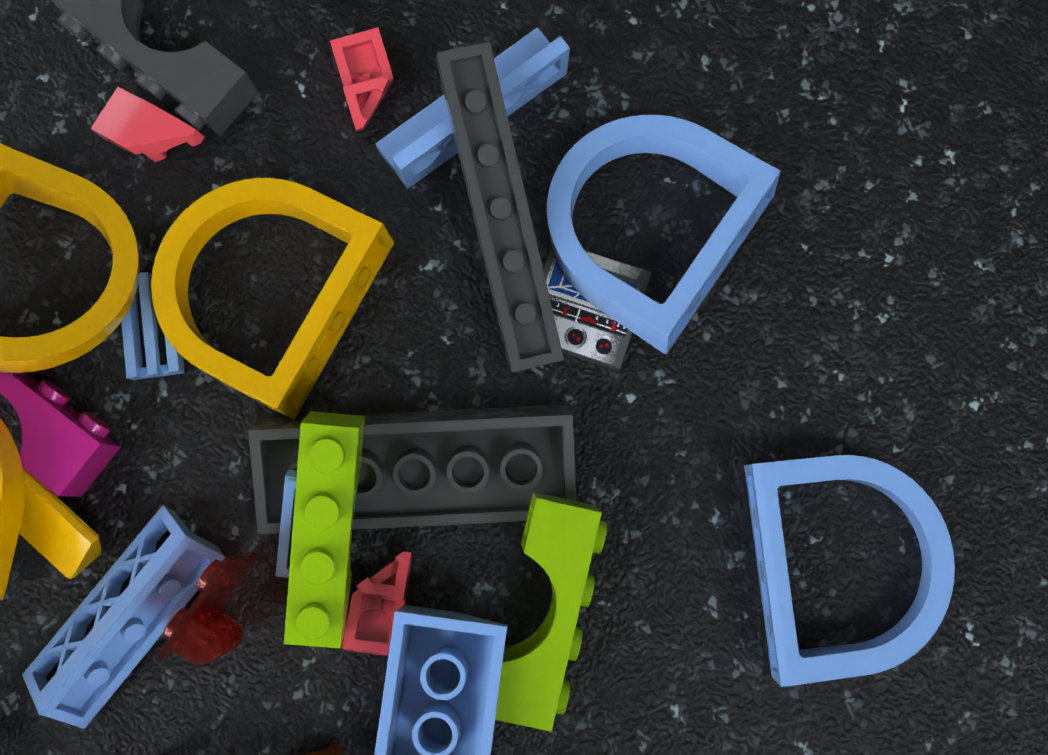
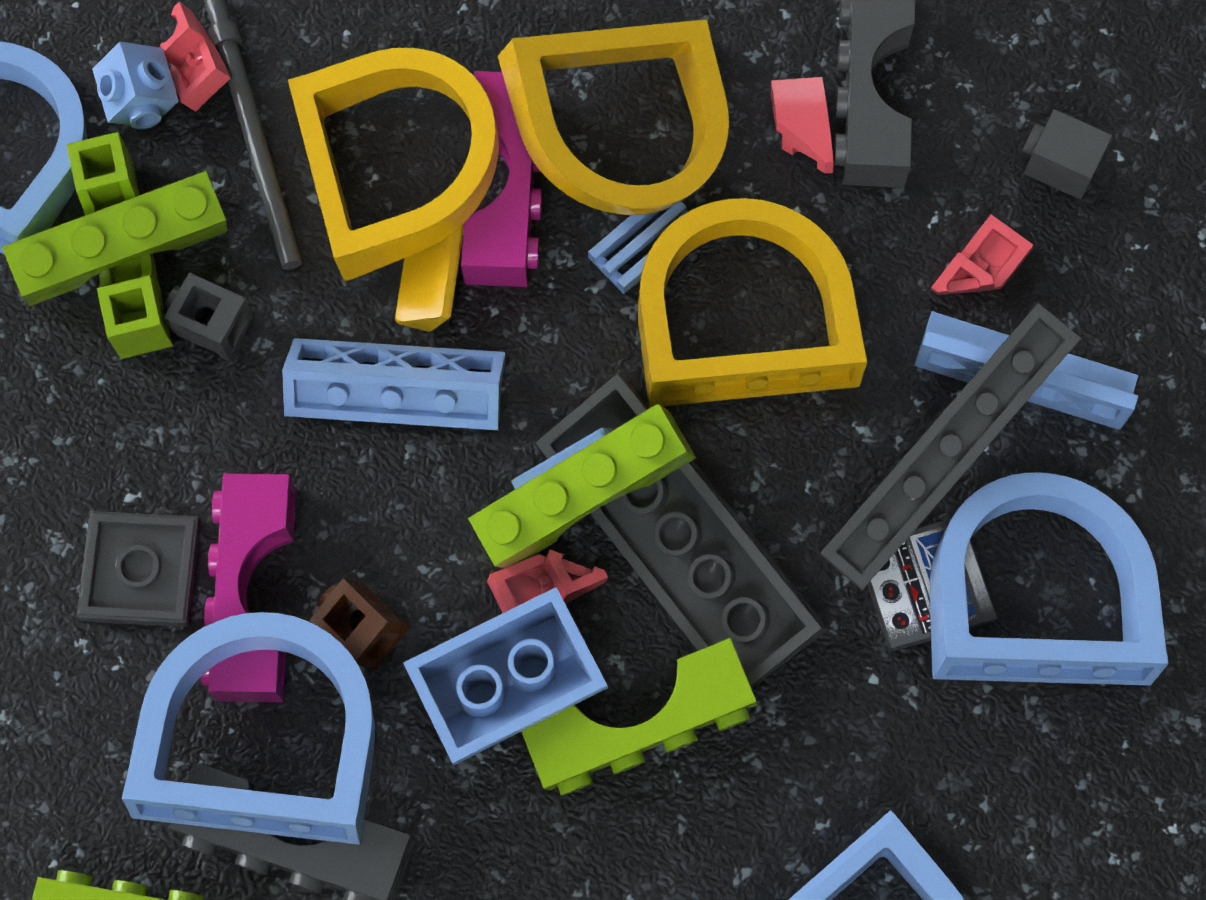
camera: 60 degrees right, 10 degrees down
(204, 630) = (434, 442): clear red hinge -> none

